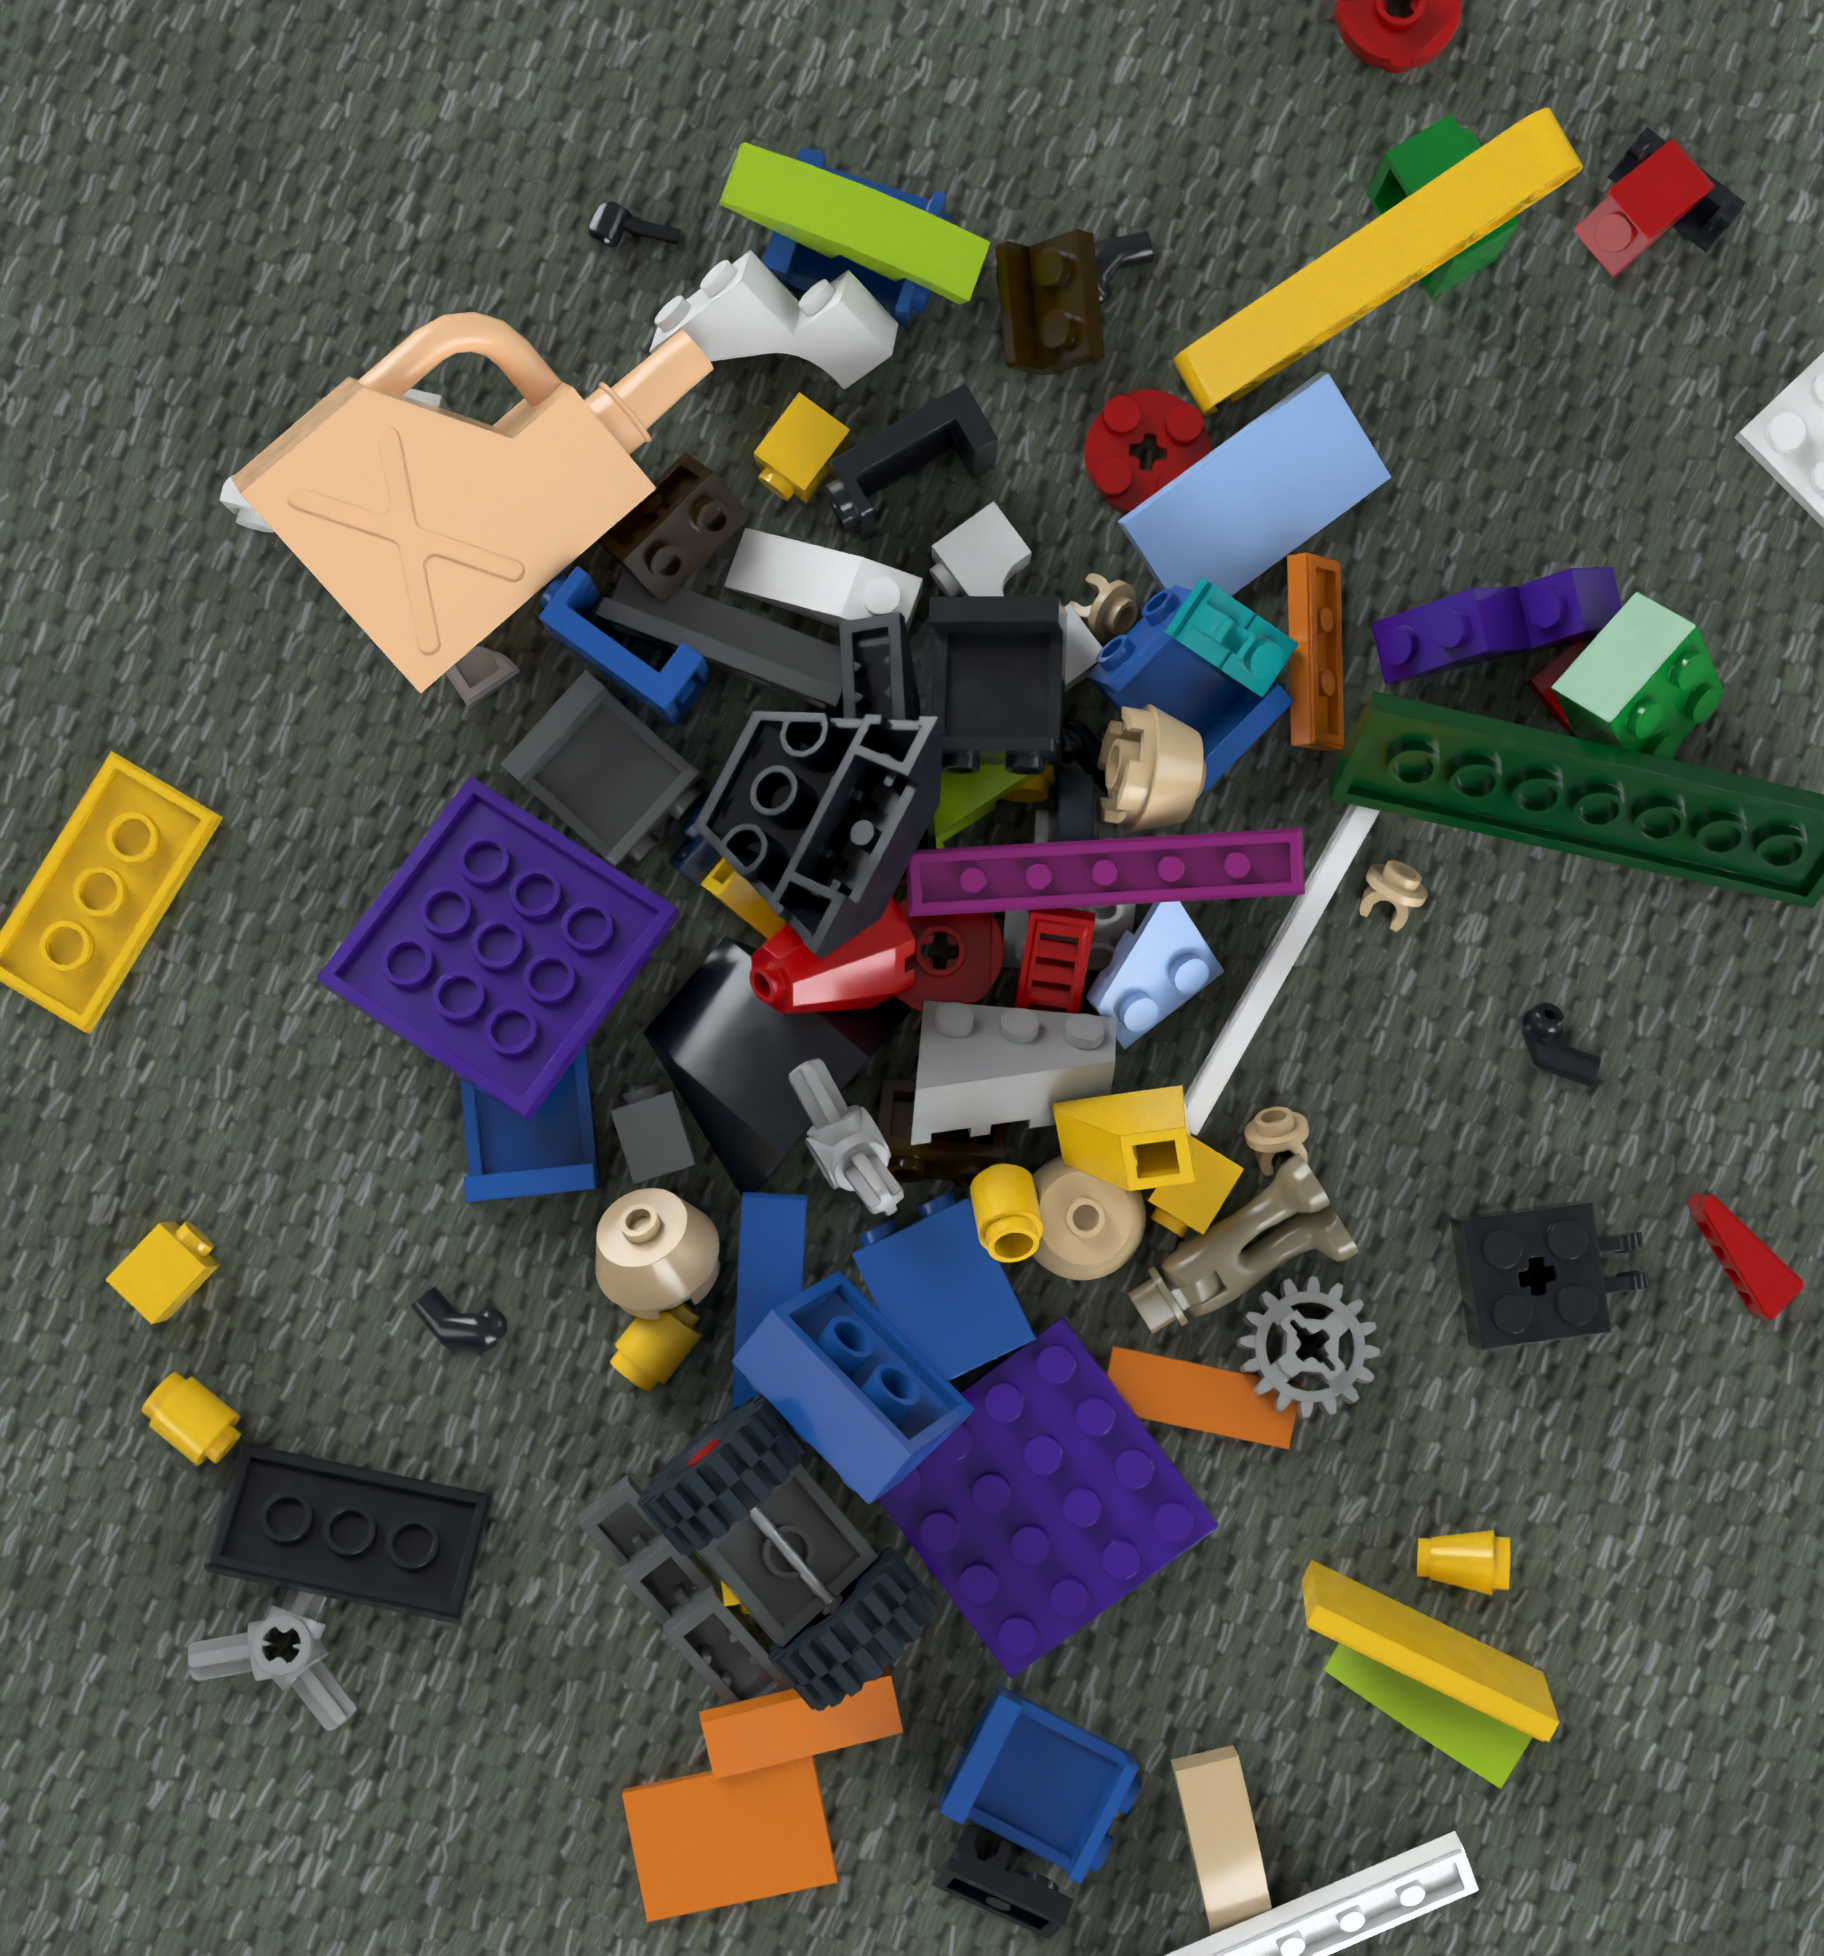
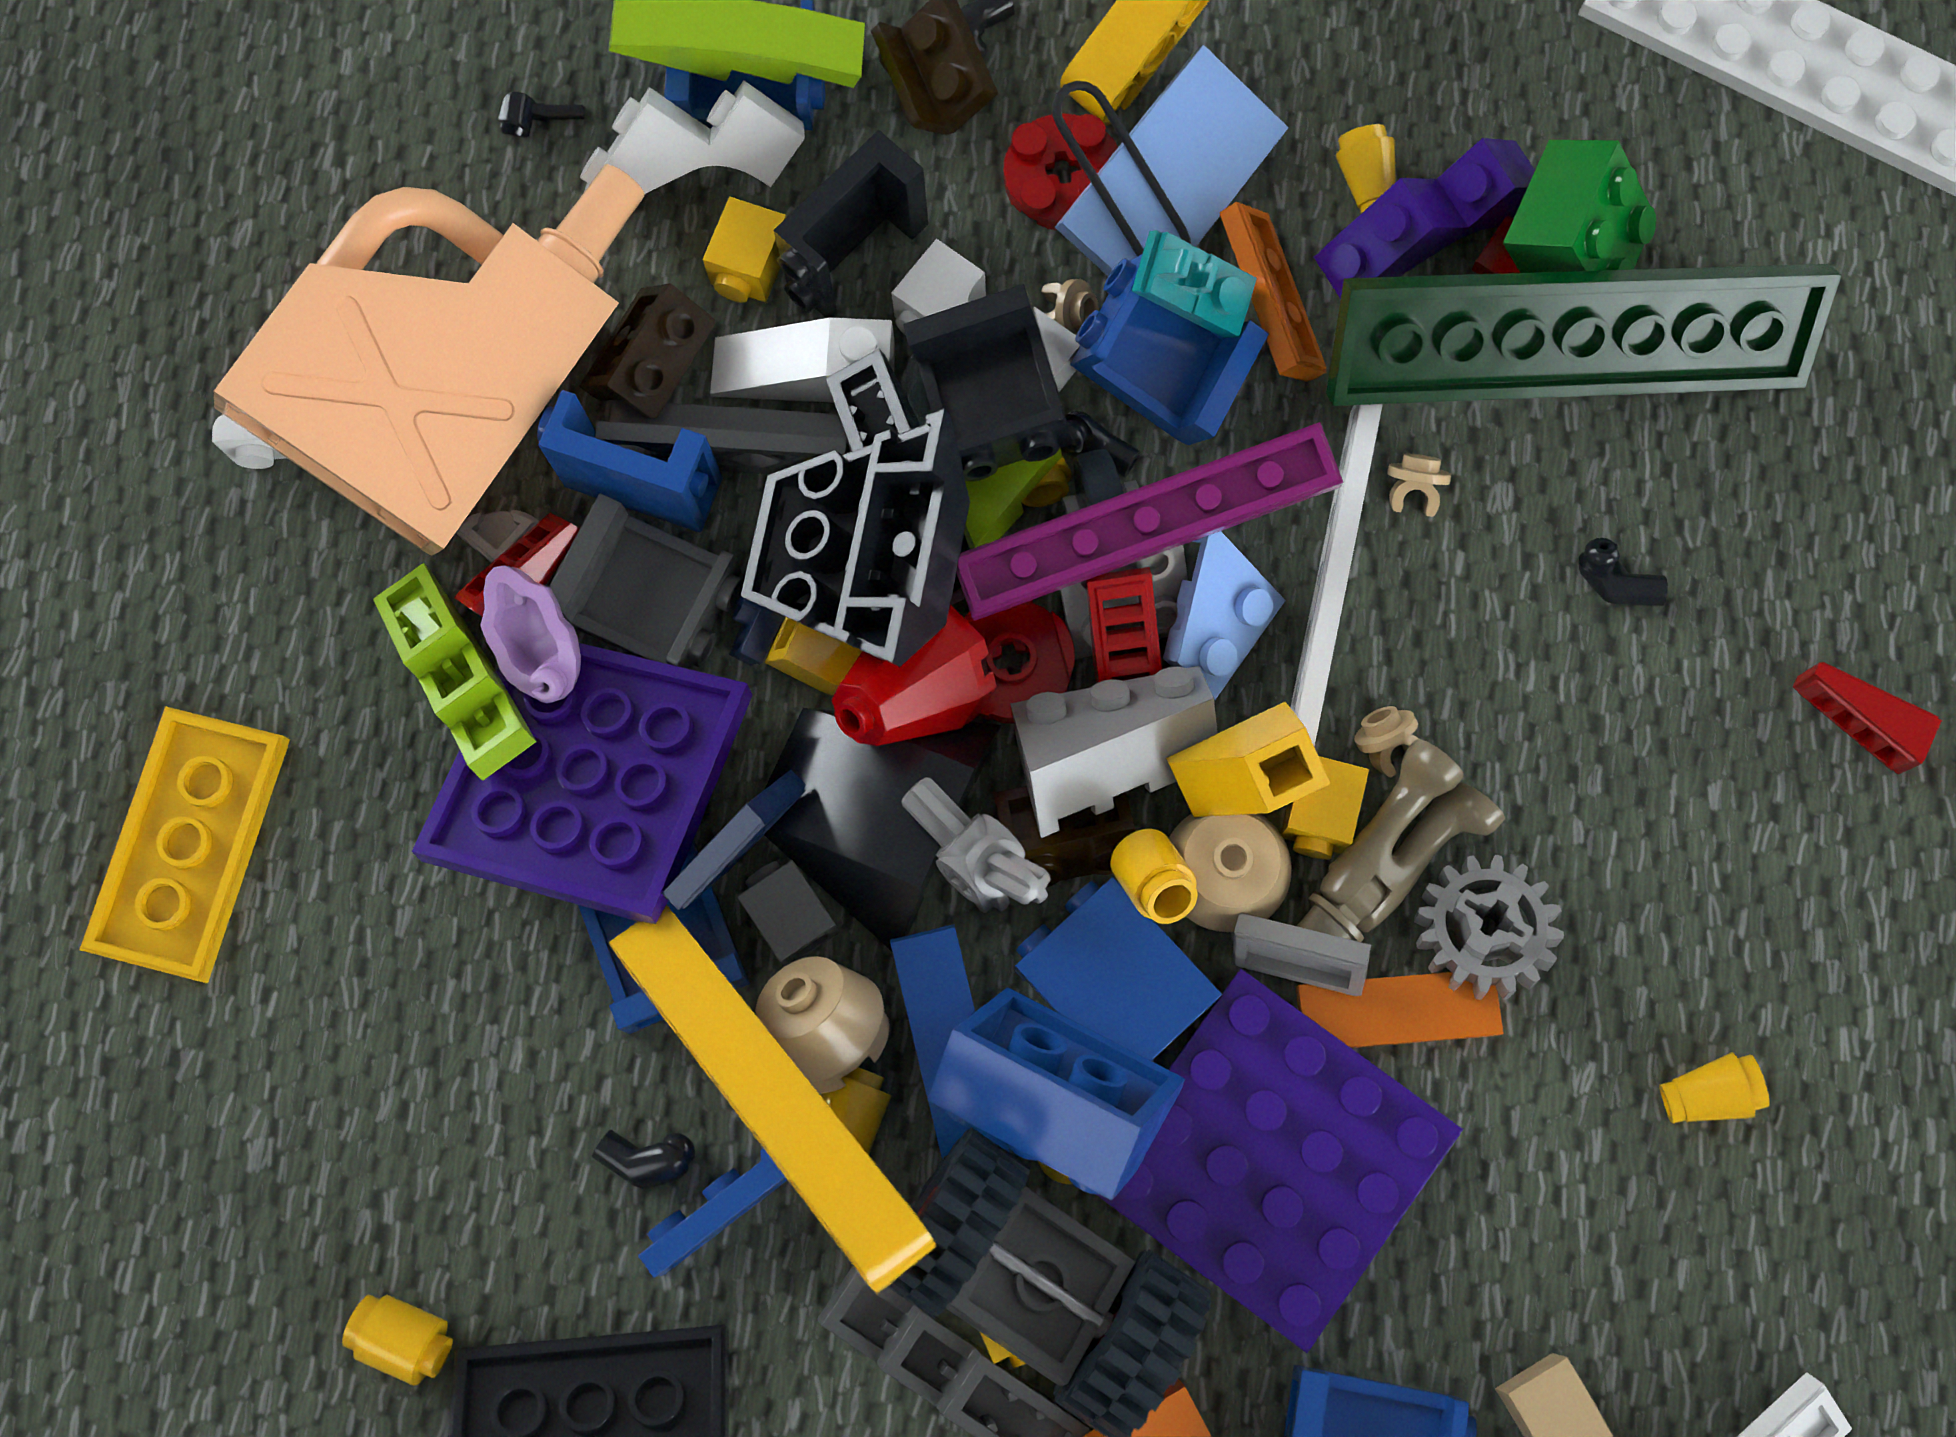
camera: 15 degrees left, 10 degrees down
(164, 1270) = (333, 1193): yellow brick -> none
(397, 804) = (453, 672): none -> lime slope
(481, 798) = (529, 635): none -> lavender arm
(486, 723) = (535, 553): none -> red slope
(524, 1386) = (727, 1201): none -> blue plate
(588, 1318) = (775, 1101): none -> yellow beam
(624, 1060) = (735, 840): none -> dark blue tile
(1121, 1322) = (1300, 954): none -> light grey tile
(1150, 770) = (1157, 422): tan cone -> none
(1221, 475) = (1132, 149): none -> black piece
(1428, 1651) = (1719, 1190): yellow tile -> none
(1453, 1727) = (1735, 1244): lime slope -> none
(1457, 548) = (1367, 162): none -> yellow cone
(1572, 1287) = (1706, 764): black hinge -> none

